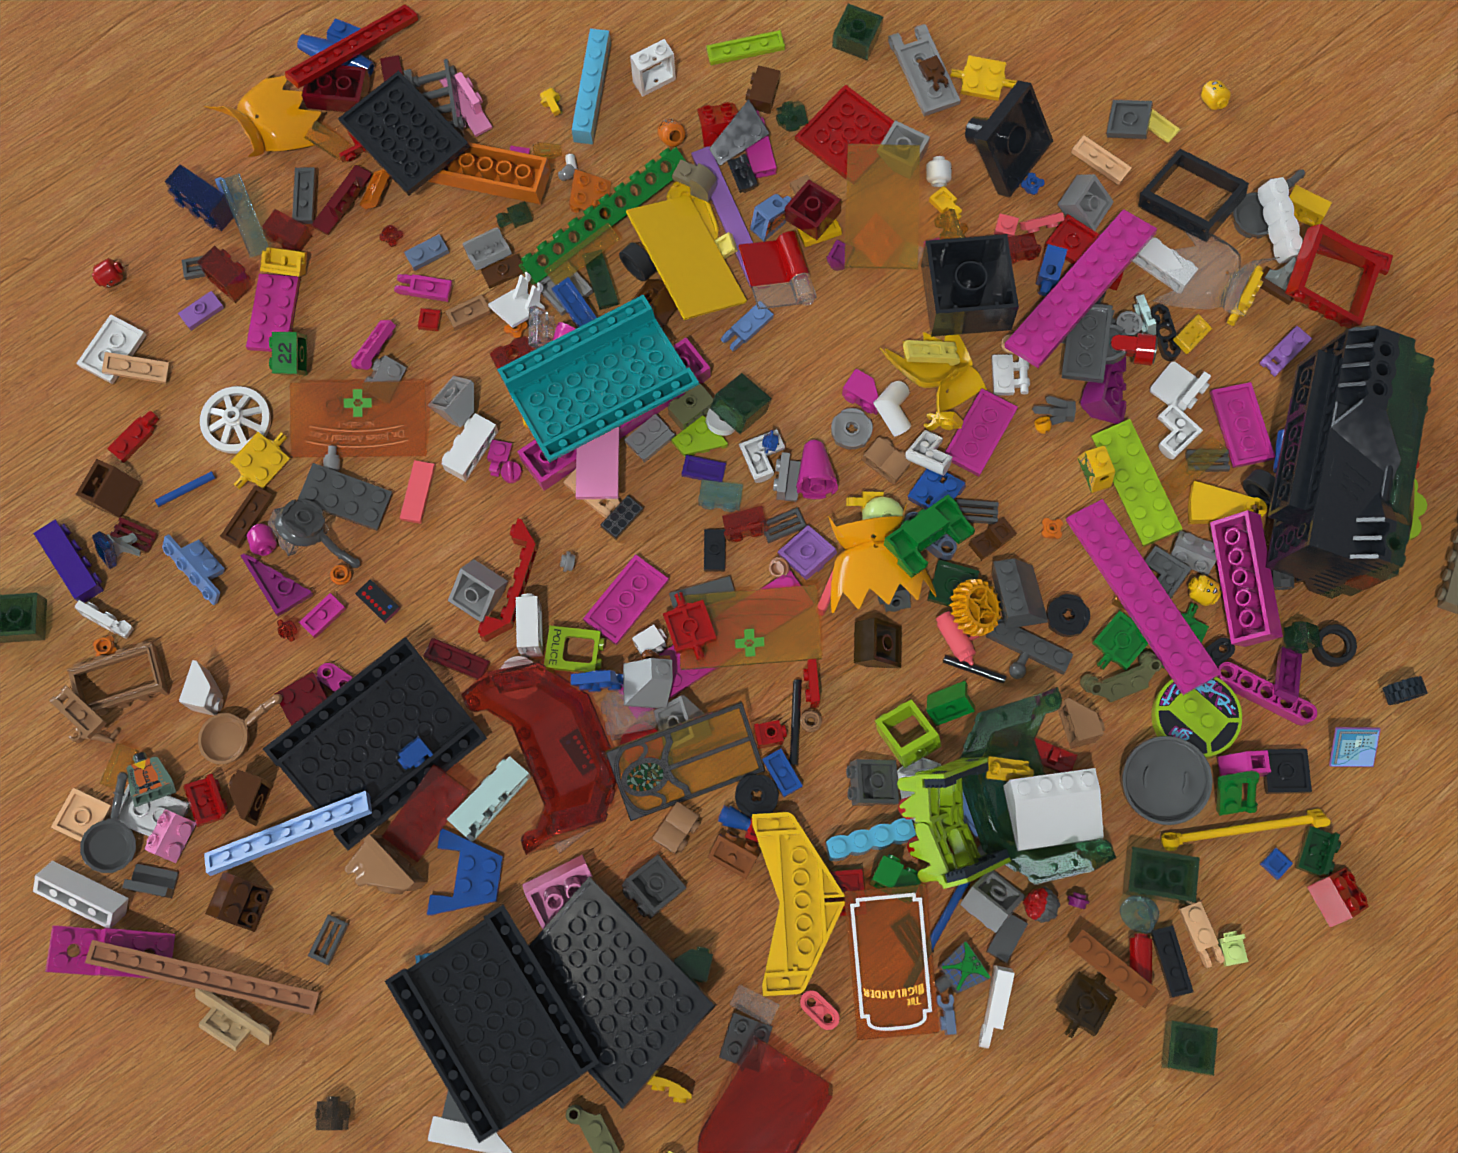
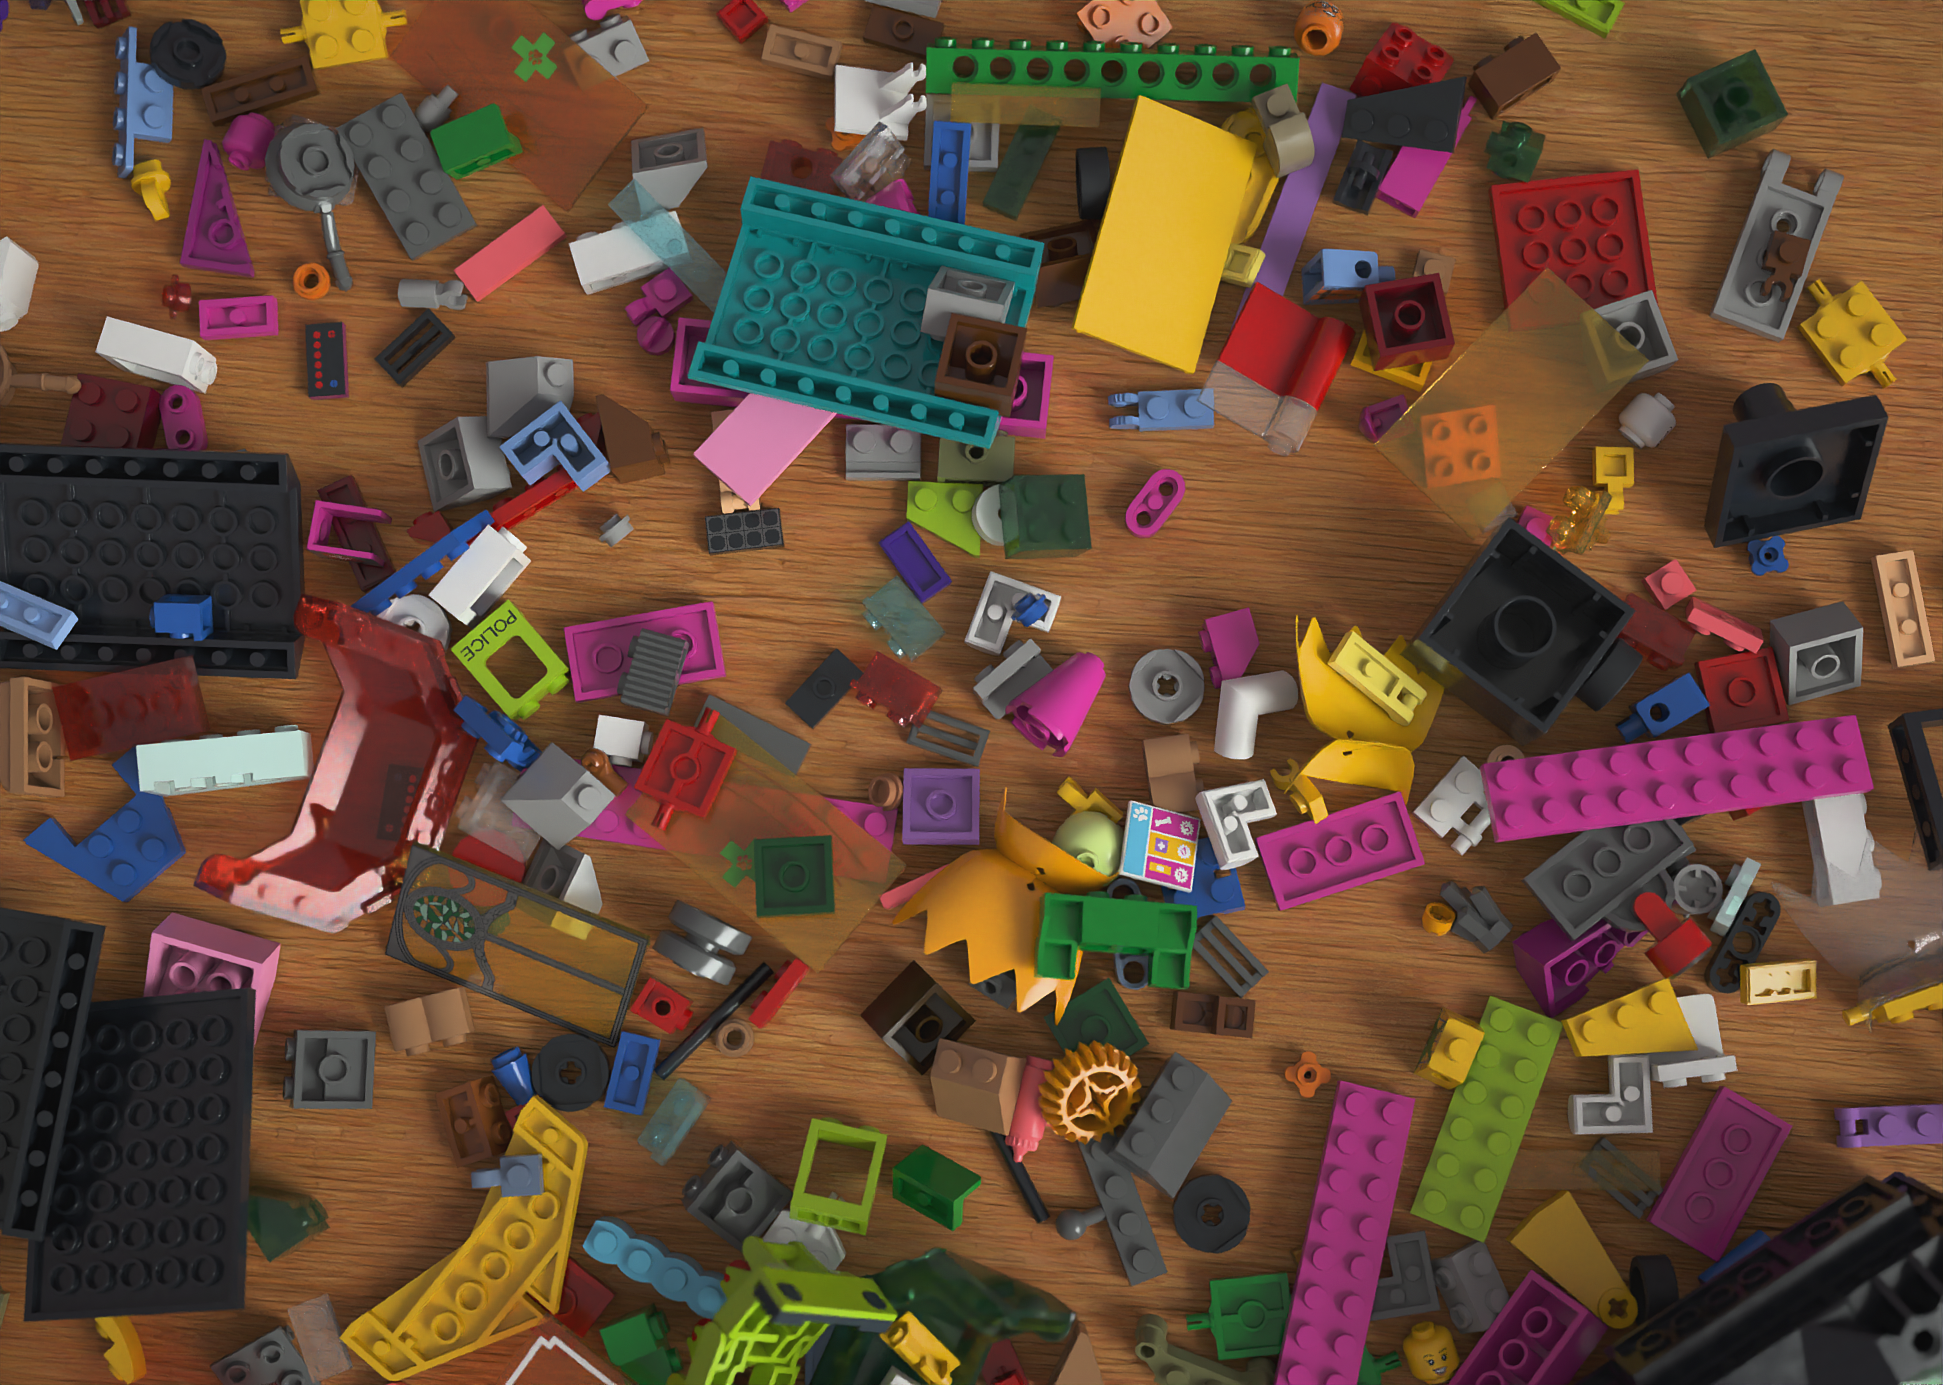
camera: 45 degrees right, 10 degrees up
(200, 527) = (187, 54): none -> black tile
(232, 593) = (151, 184): none -> yellow piece
(302, 657) = (156, 355): none -> white window
(362, 457) = (474, 142): none -> green panel
(399, 535) = (431, 294): none -> light grey bar
(410, 580) = (425, 357): none -> black tile
(449, 648) = (323, 517): none -> dark pink piece
(482, 538) = (524, 390): none -> light grey slope
(487, 425) = (670, 242): none -> clear light blue tile
(504, 634) = (425, 564): none -> blue wing
(513, 539) = (555, 440): none -> medium blue brick
(542, 518) = (631, 443): none -> reddish brown slope
(636, 343) = (965, 295): none -> light grey slope
(639, 600) = (653, 671): none -> dark grey brick
(664, 355) = (981, 363): none -> reddish brown slope
(762, 689) = (700, 946): none -> dark grey wheel
(776, 627) = (794, 876): none -> dark green plate
(776, 852) = (517, 1175): none -> sand blue plate
(779, 365) = (1153, 504): none -> dark pink plate
(818, 775) = (673, 1120): none -> clear light blue bracket
(910, 488) = (1159, 846): none -> piece
(927, 647) = (976, 1085): none -> medium nougat slope
(1021, 273) = (1609, 675): none -> black tyre
(1155, 395) = (1632, 1024): none -> yellow wing

